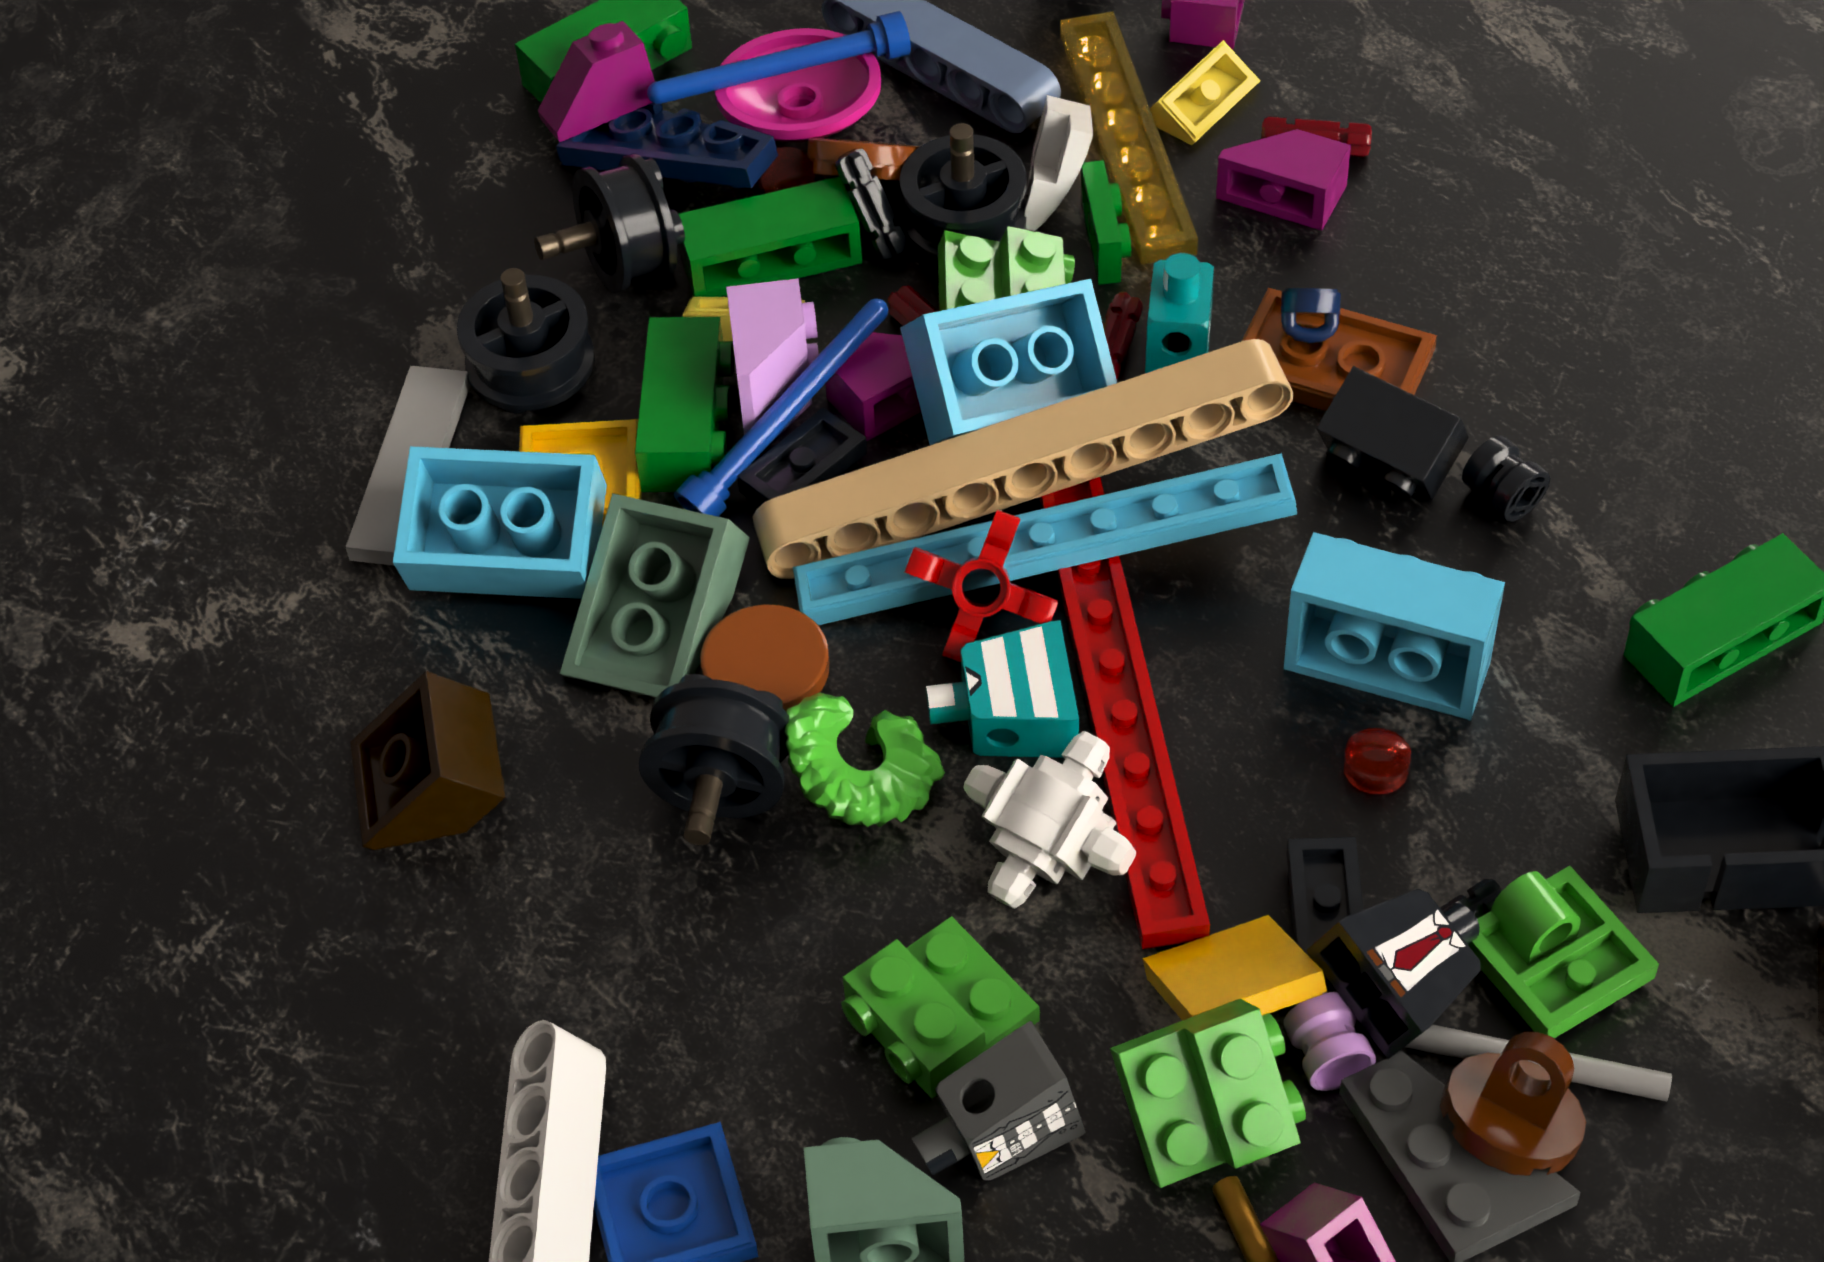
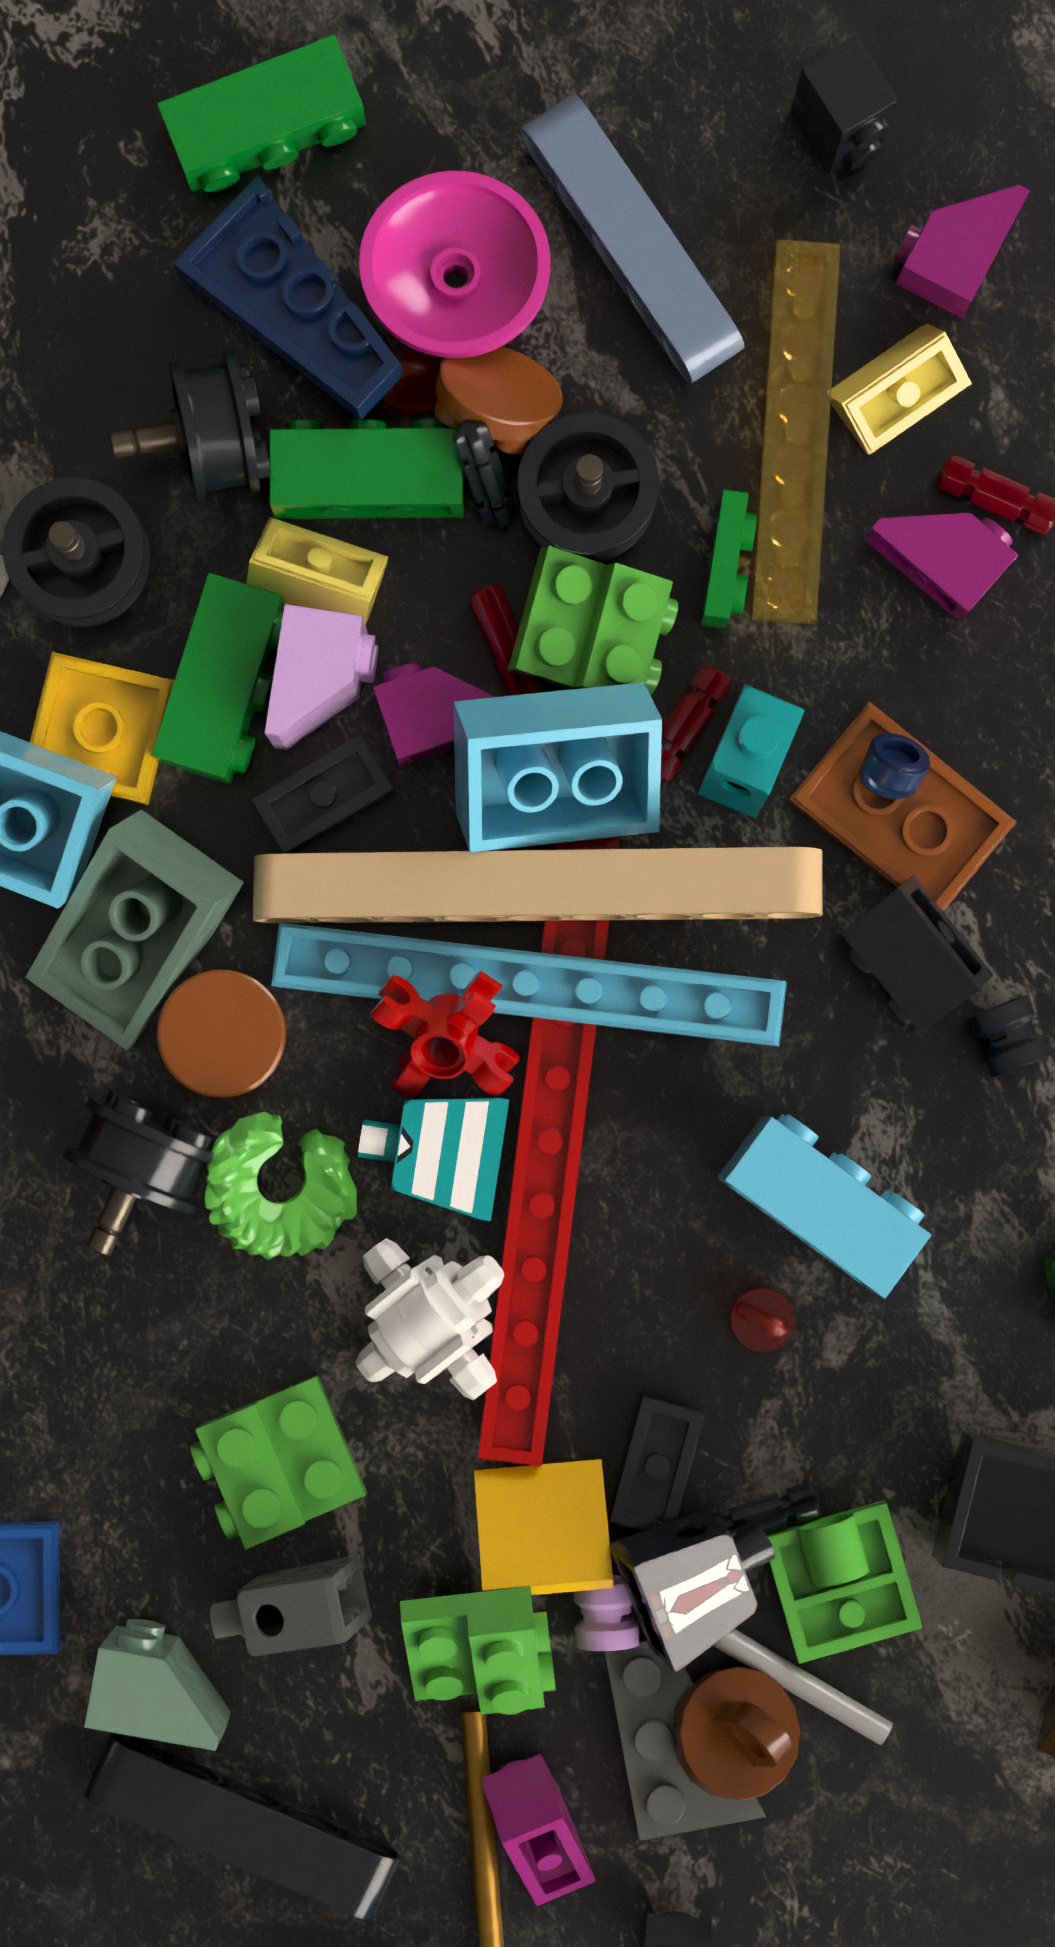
camera: 10 degrees right, 35 degrees up
(597, 81) = (233, 199): magenta slope -> none
(709, 489) = (216, 806): blue piece -> none
(884, 37) = (564, 234): blue piece -> none
(1056, 157) = (710, 450): white slope -> none

